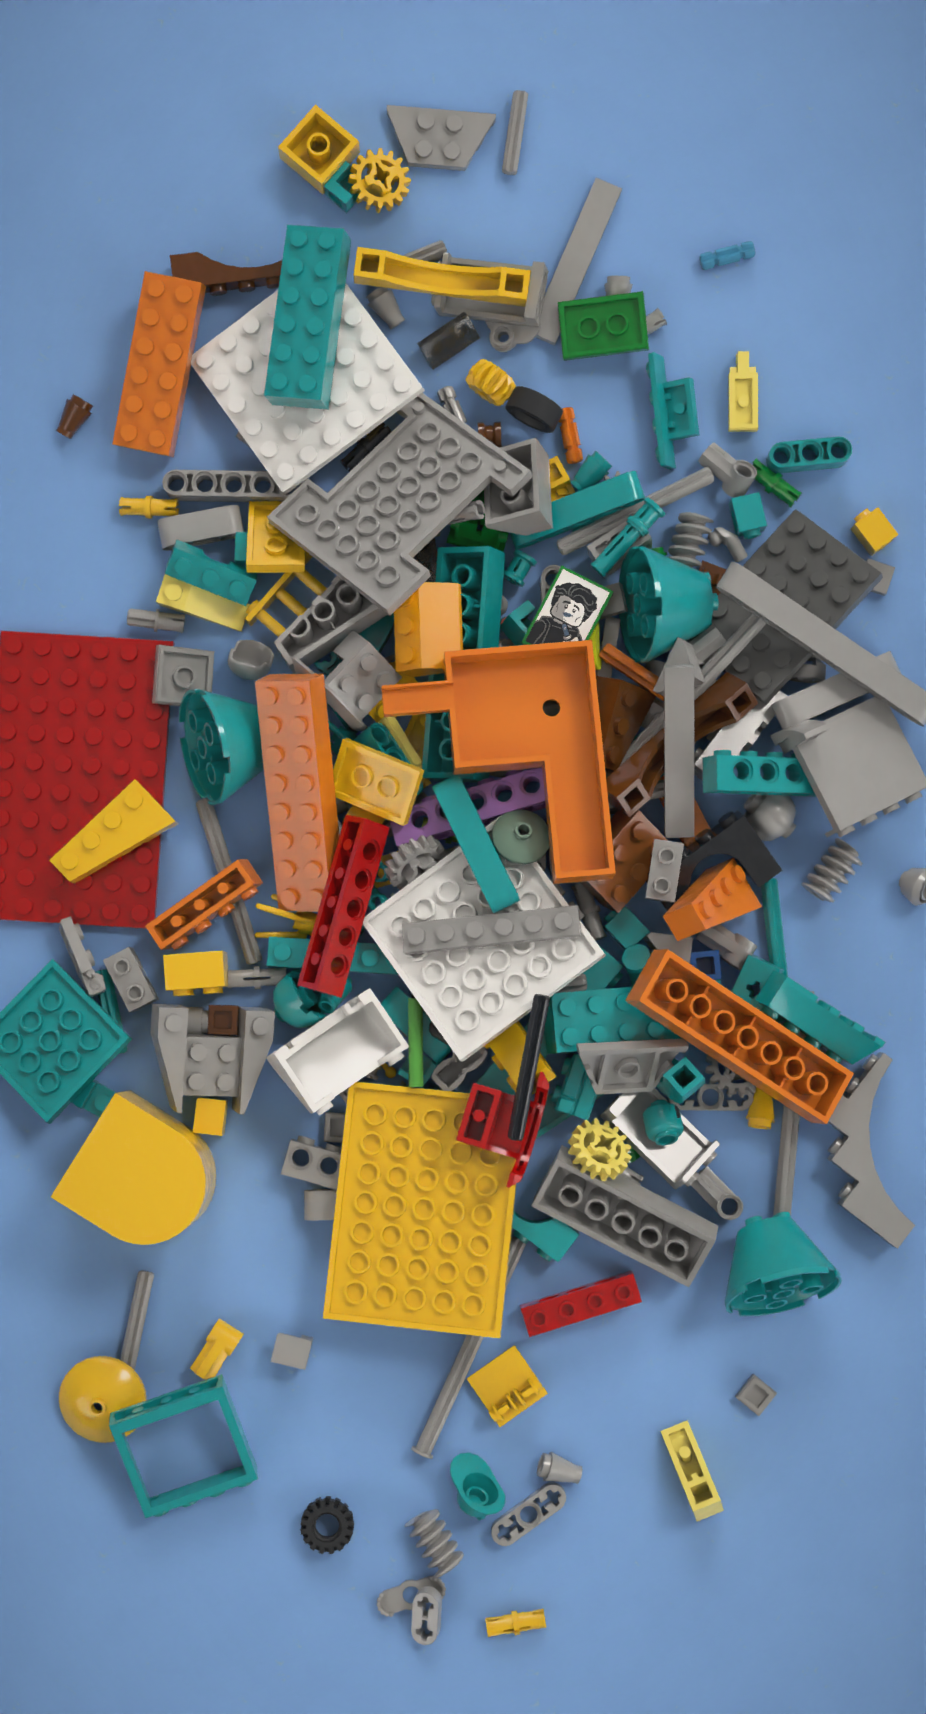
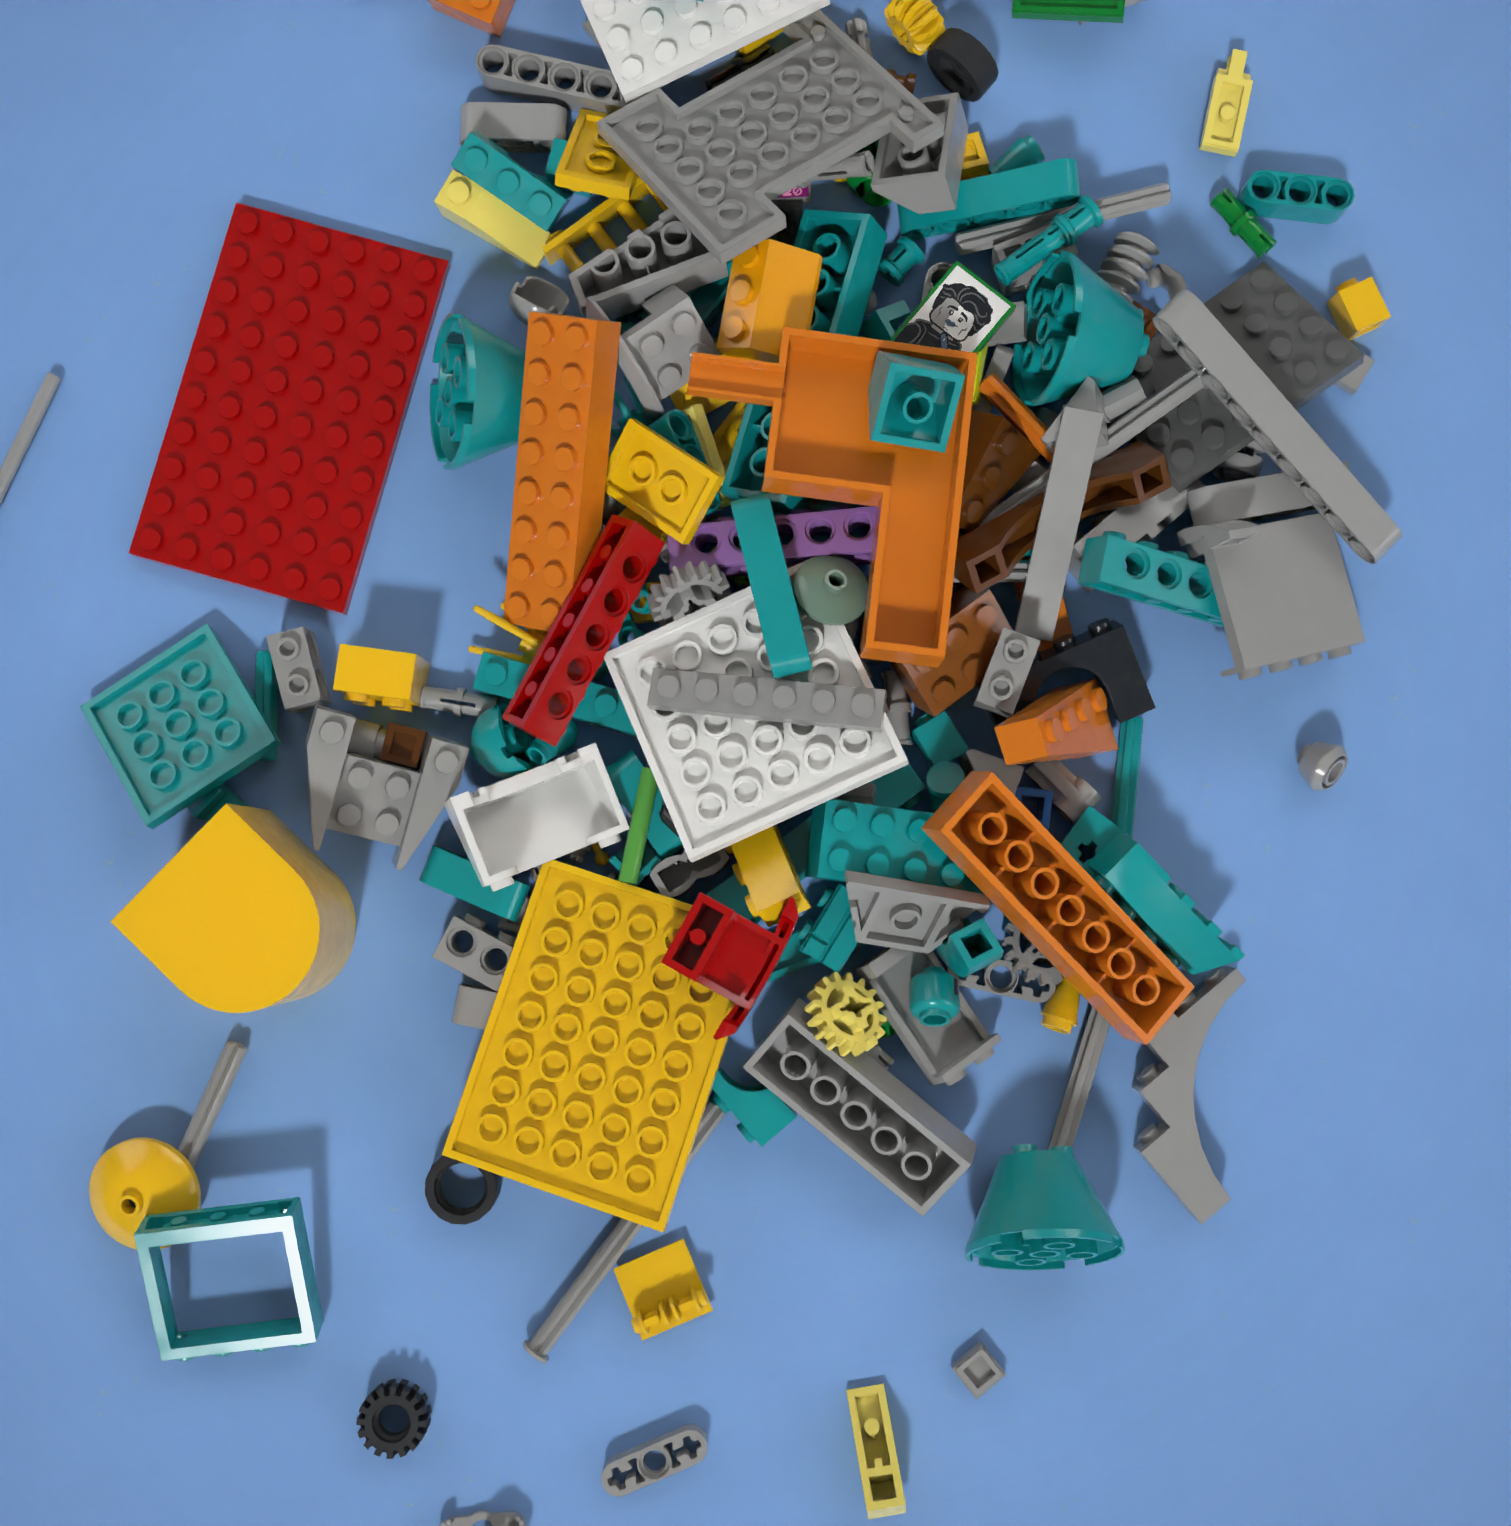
camera: 15 degrees right, 0 degrees up
(81, 958) = (244, 632): light grey hinge -> none
(114, 832) = (314, 478): yellow wedge -> none
(148, 507) = (453, 88): yellow pin -> none
(156, 620) = (432, 230): light grey axle -> none
(179, 671) = (446, 291): light grey tile -> none
(204, 904) = (410, 594): orange brick -> none
(210, 1116) = (361, 864): yellow panel -> none
(219, 1345) = (308, 1157): yellow piece -> none
(222, 860) = (451, 575): light grey axle -> none
(290, 1111) = (458, 878): none -> teal beam
(292, 1350) = (397, 1185): light grey panel -> none
(339, 1363) = (449, 1212): none -> black tyre
(435, 1541) = (528, 1470): light grey piece -> none
(467, 535) = (844, 198): green hinge -> none
(476, 1486) = (595, 1411): teal piece -> none
(528, 1067) = (776, 887): black axle -> none
(552, 686) = (913, 401): none -> teal slope
(558, 1469) = (704, 1411): light grey cone -> none
(570, 436) = (1000, 113): orange axle -> none
(580, 1303) = (779, 1205): red brick -> none
(673, 410) = (1137, 105): teal bracket -> none
(714, 1191) = (982, 1100): light grey piece -> none
(735, 474) = (1197, 200): light grey piece -> none
(748, 515) = (1203, 255): teal brick -> none
(770, 815) = (1155, 635): light grey plant -> none
(833, 871) = (1217, 723): light grey piece -> none

